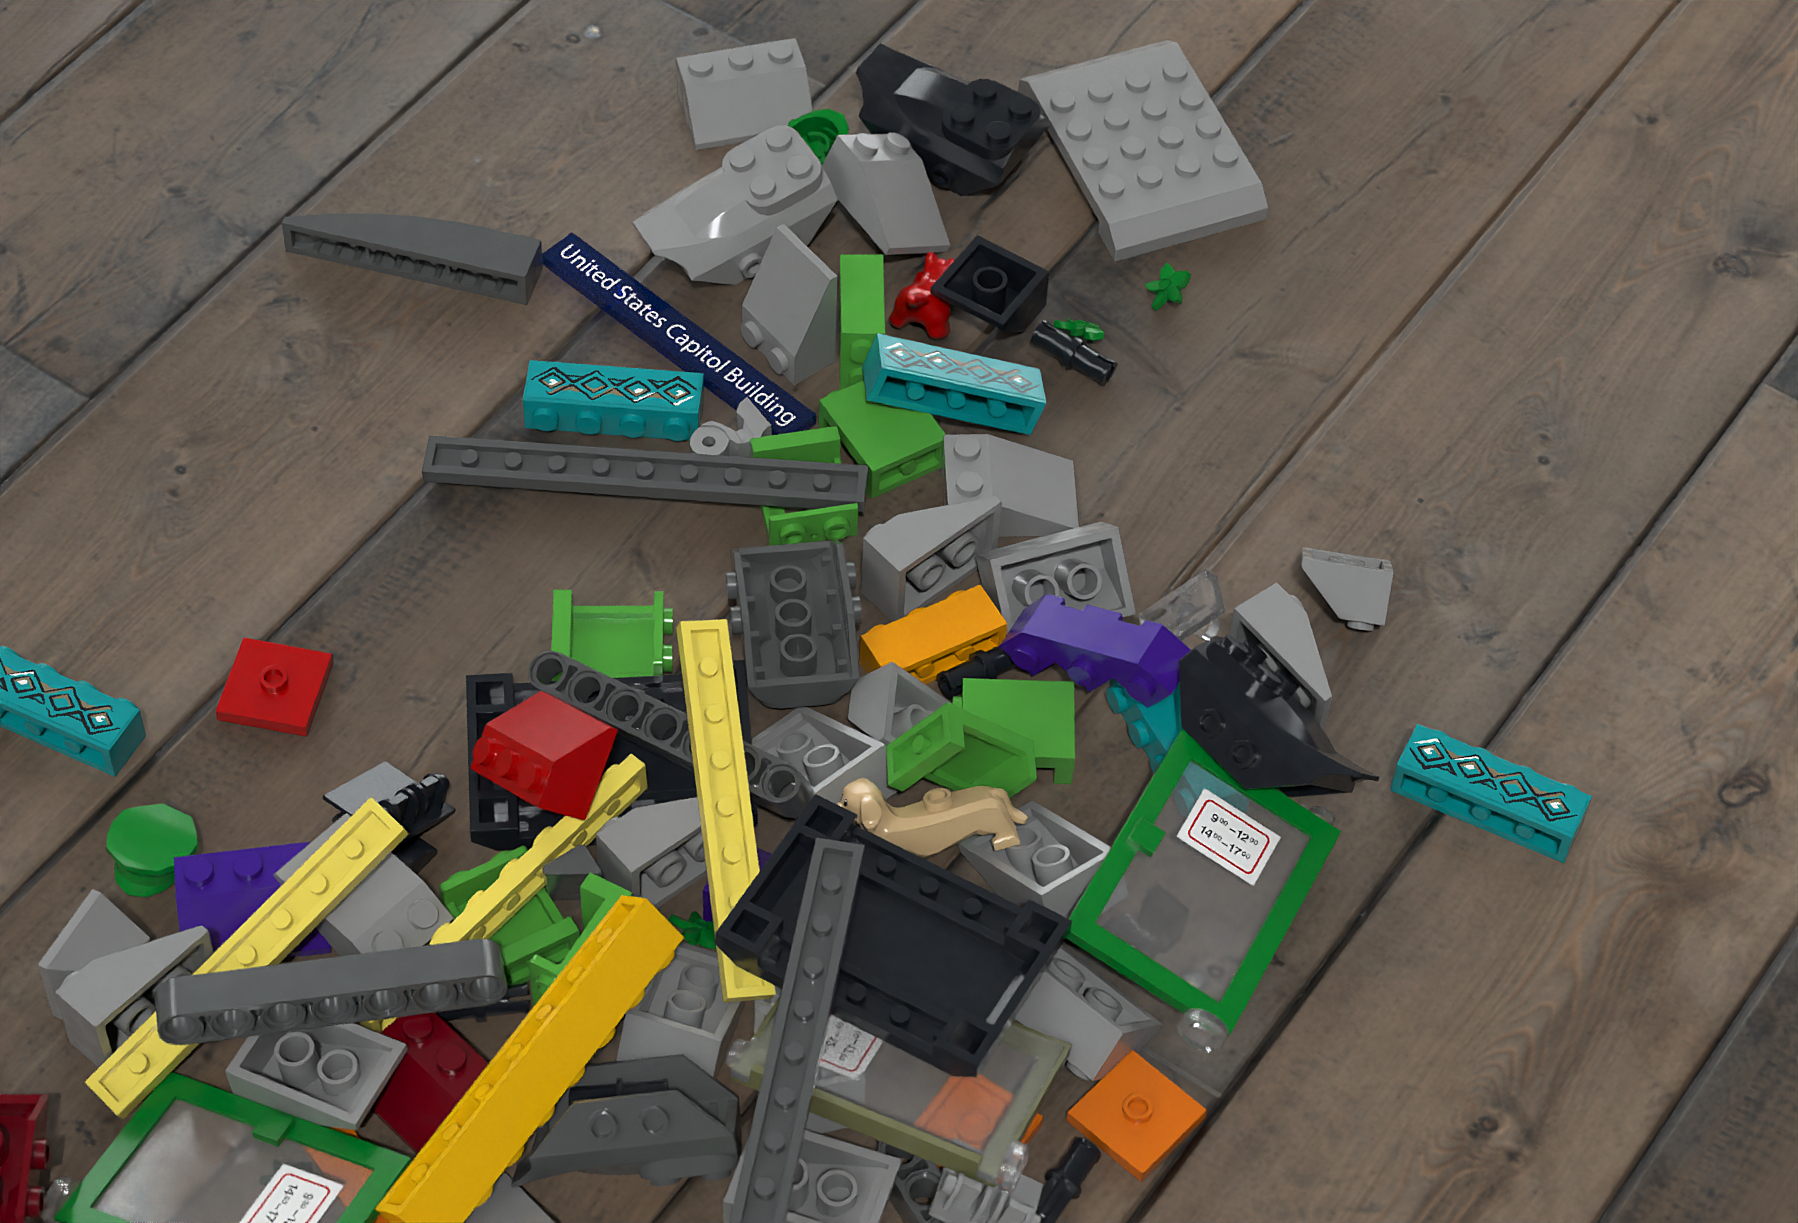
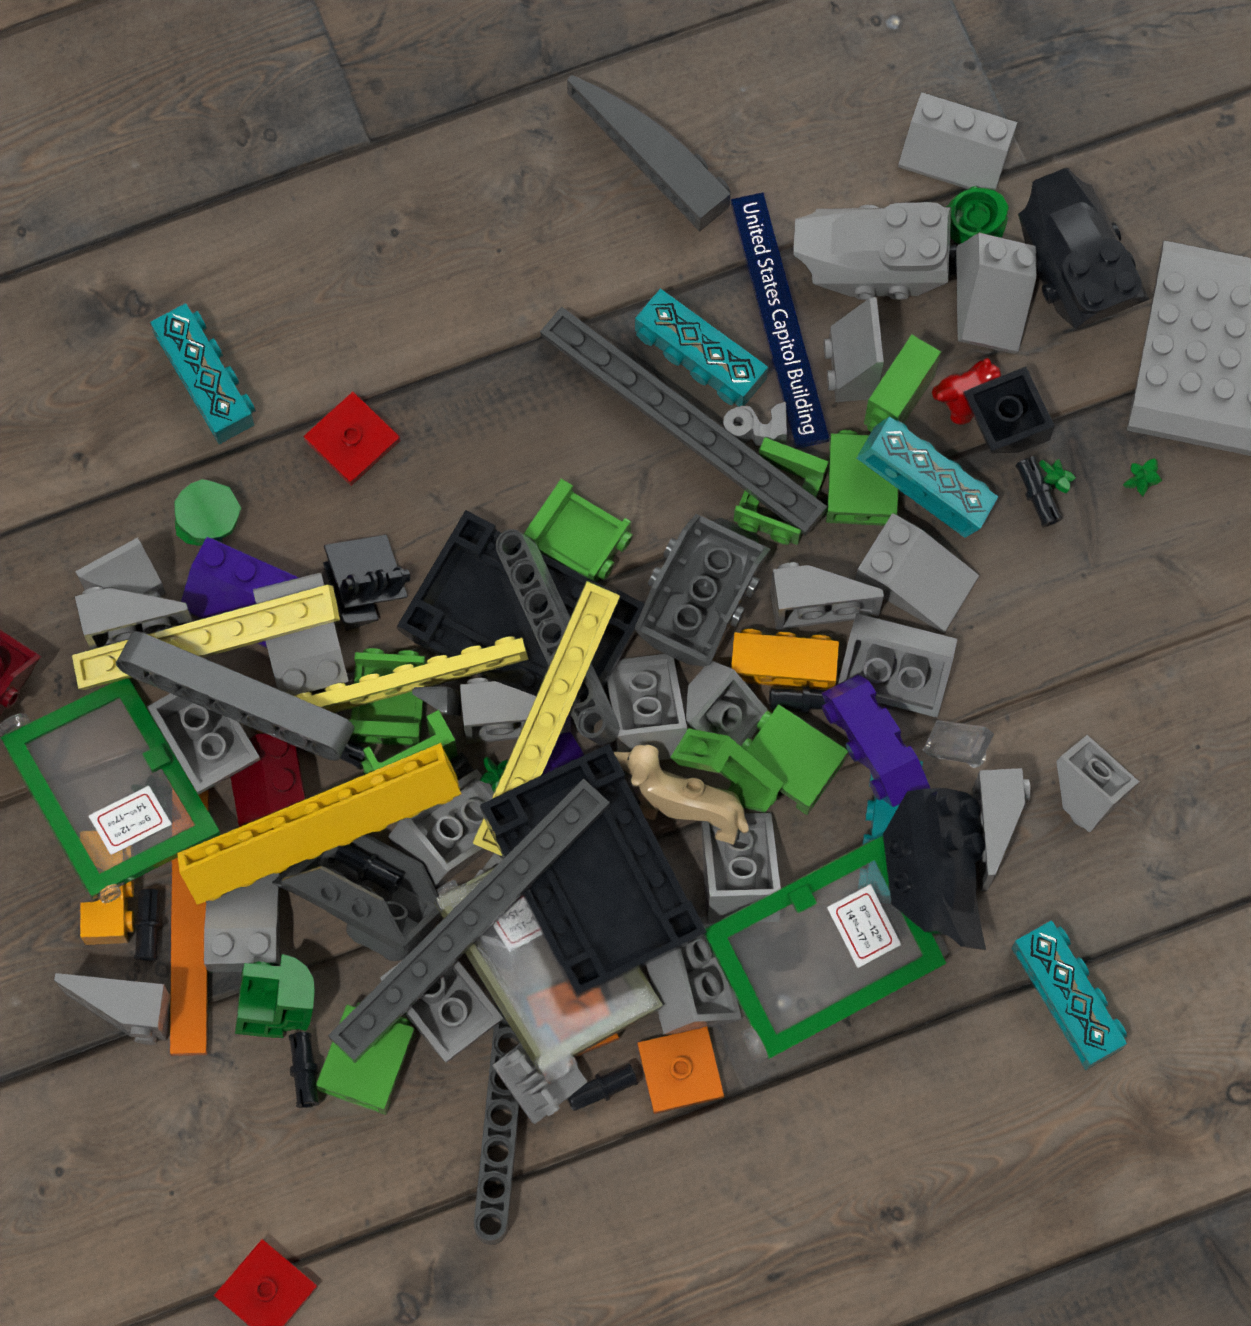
camera: 35 degrees right, 20 degrees up
(546, 754) = (464, 609): red slope -> none

